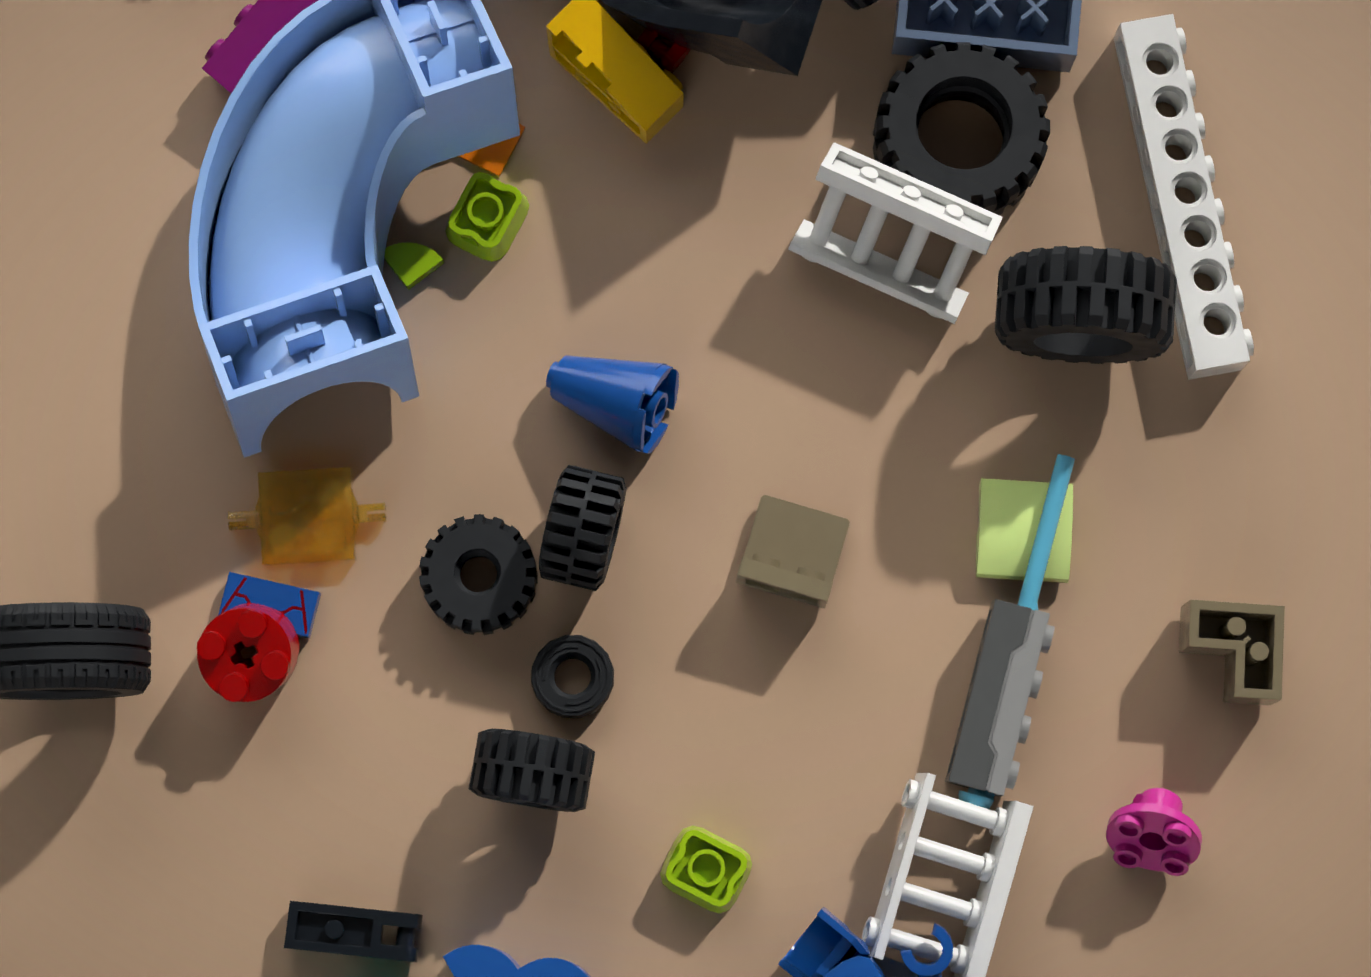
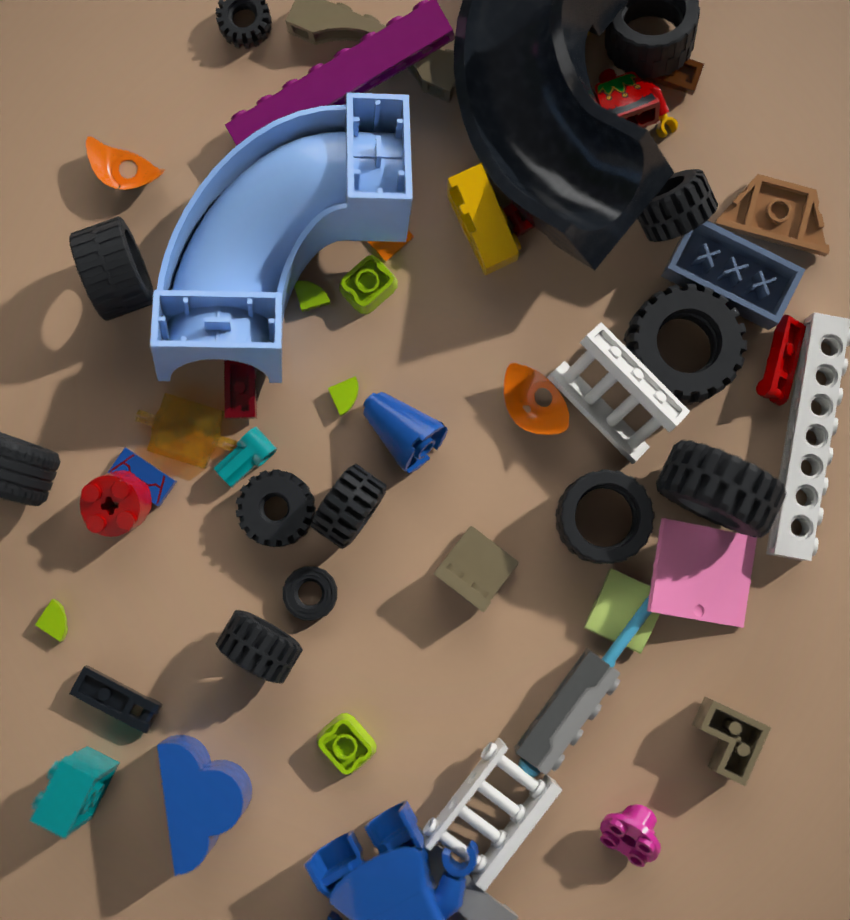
camera: 25 degrees right, 5 degrees up
(49, 182) = (106, 163): none -> orange piece
(122, 323) = (111, 268): none -> black tyre
(220, 856) = (54, 620): none -> lime tile
(362, 427) = (240, 390): none -> dark red plate
(412, 508) = (250, 452): none -> teal piece
(513, 381) = (344, 395): none -> lime tile
(757, 282) = (520, 389): none -> orange piece
(956, 357) = (640, 508): none -> black tyre
(1103, 105) = (782, 361): none -> red plate
(1108, 436) = (701, 573): none -> bright pink piece

